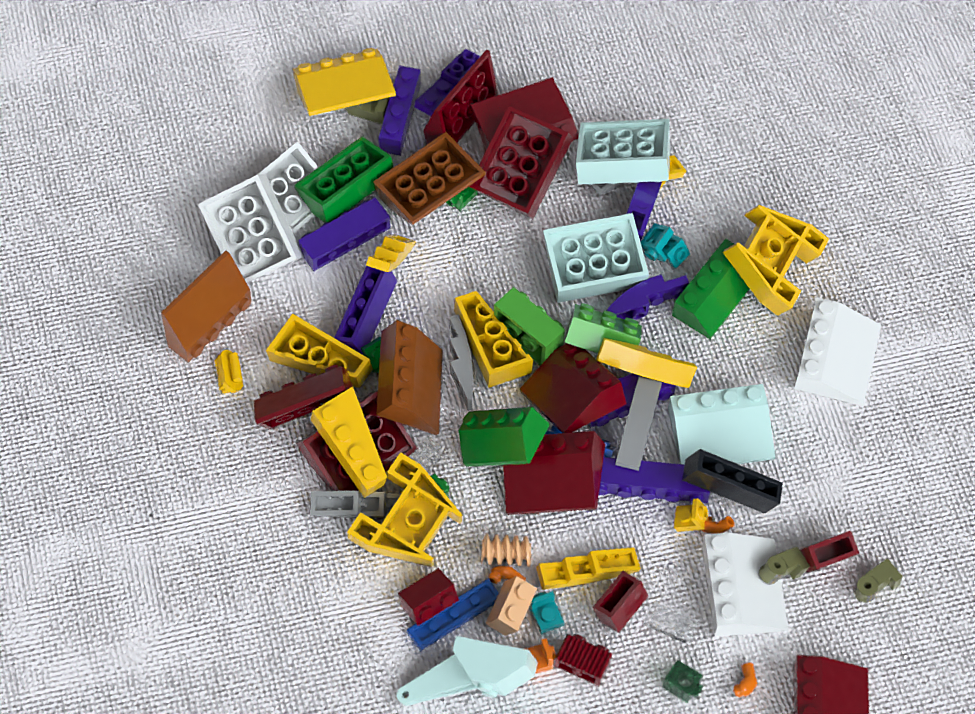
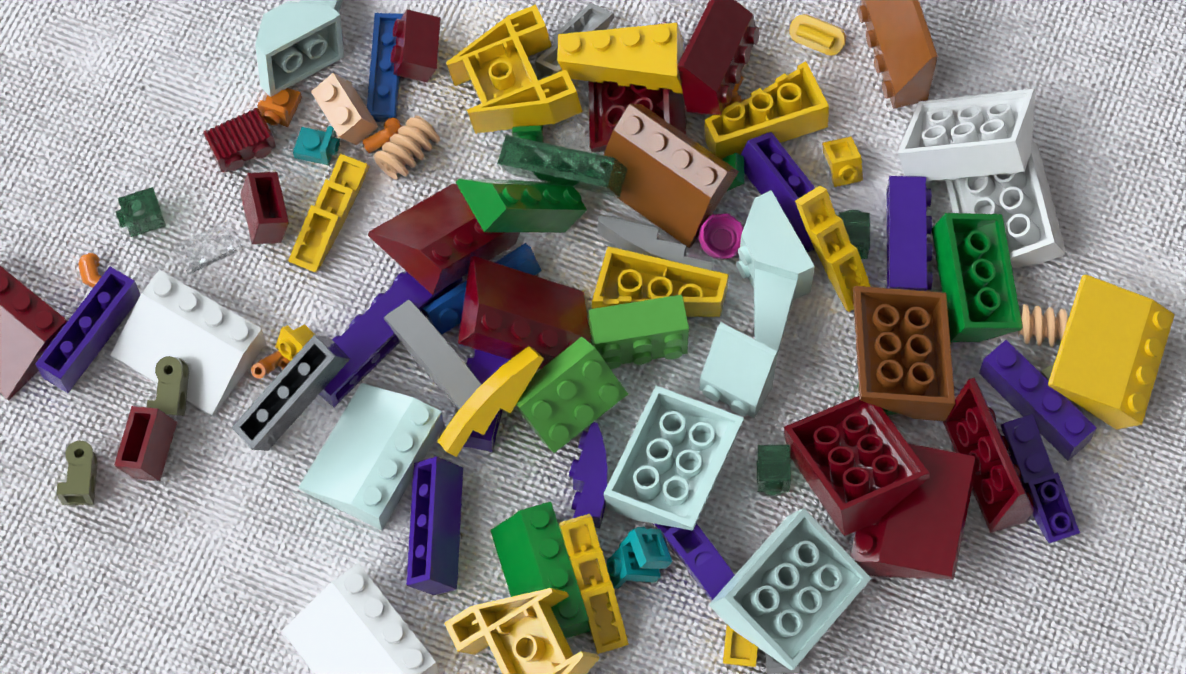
camera: 130 degrees right, 5 degrees up
(314, 299) = (844, 161): none -> yellow bracket
(345, 126) = (1042, 325): none -> light nougat piece
(358, 259) = (858, 230): none -> clear green brick
(427, 278) = (775, 267): none -> light aqua slope
(428, 326) = (721, 236): none -> dark pink hair
(452, 439) = (562, 166): none -> clear green brick
(513, 258) = (738, 371): none -> light aqua slope
(552, 213) = (773, 469): none -> clear green brick
(697, 255) = (594, 583): none -> yellow slope
(738, 357) = (435, 526): none -> dark purple brick
(787, 642) = (88, 329): none -> dark purple brick

